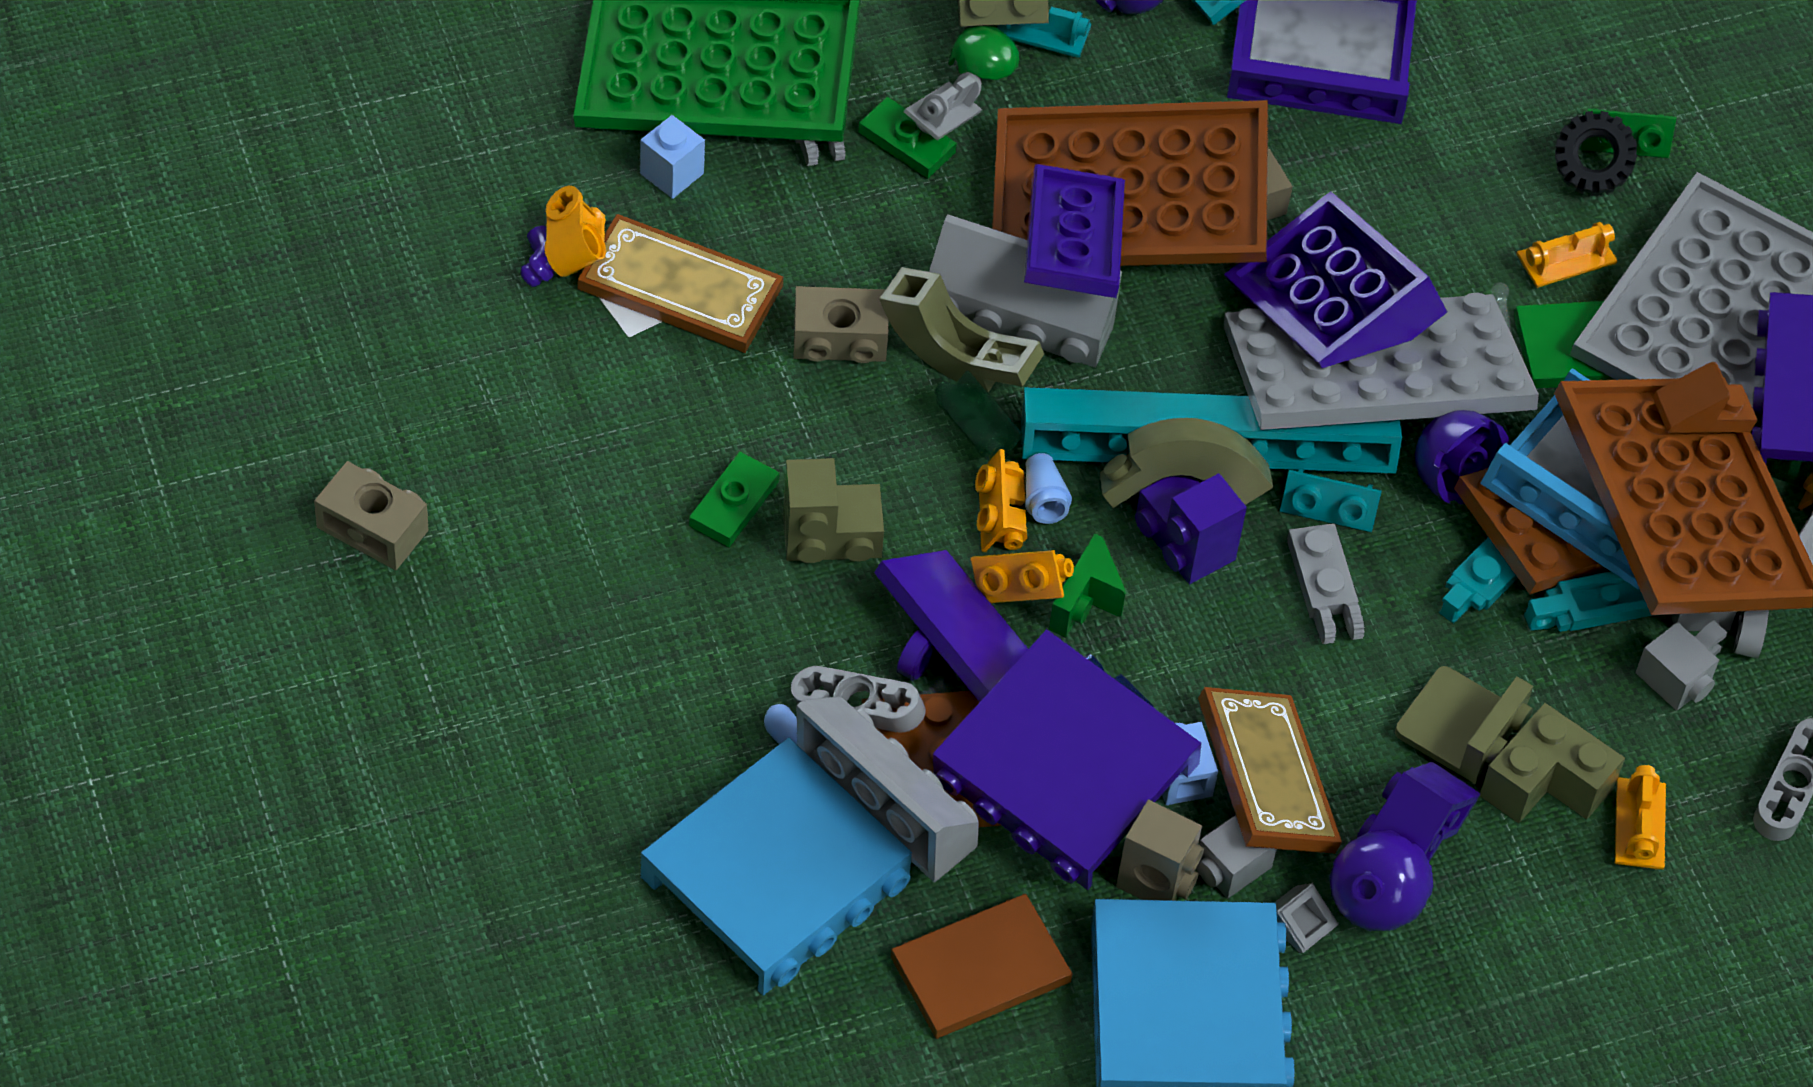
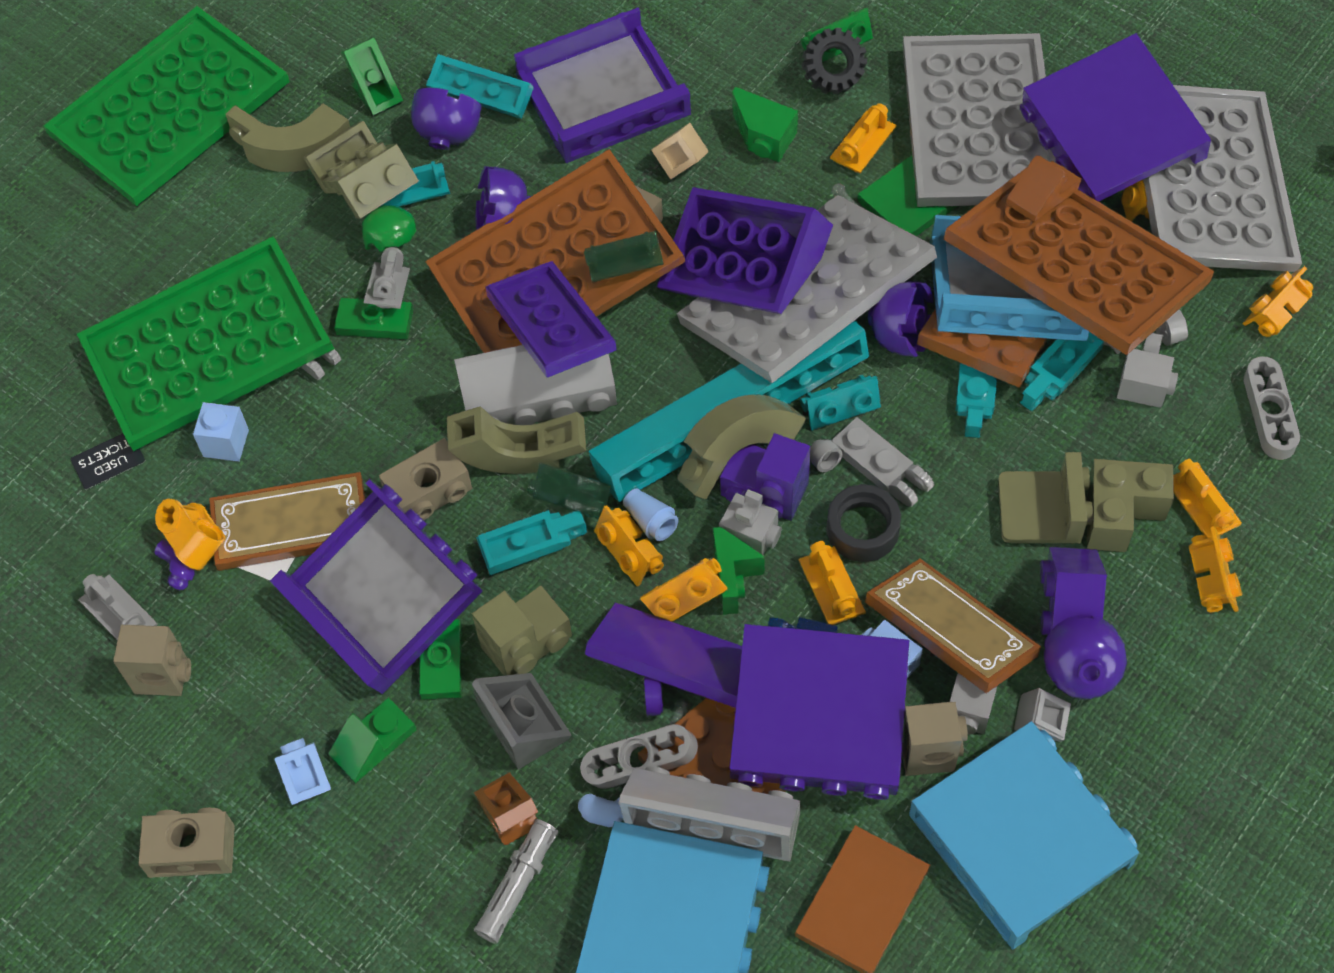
camera: 25 degrees left, 5 degrees up
(453, 265) = (112, 604): none -> light grey hinge
(453, 327) = (151, 660): none -> dark tan brick
(525, 516) = (301, 771): none -> light blue bracket
(541, 121) = (106, 461): none -> black sticker
(606, 531) = (369, 741): none -> green slope
(667, 734) = (524, 865): none -> light grey pin
(697, 673) = (507, 808): none -> dark orange slope
(720, 394) = (380, 588): none -> panel
(773, 595) = (520, 716): none -> dark grey slope
(905, 440) = (529, 539): none -> teal hinge
(1126, 83) = (499, 195): none -> dark purple cylinder
(1140, 556) = (752, 521): none -> light grey brick
(1180, 663) = (831, 584): none -> light orange hinge
(1200, 216) = (623, 256): none -> clear green hinge
(1258, 657) = (863, 496): none -> black tyre
(1277, 540) = (825, 455): none -> light grey hinge
(1356, 151) = (680, 151): none -> tan panel
(1470, 178) = (764, 124): none -> green slope
(1591, 912) = (1212, 556): none -> light orange hinge

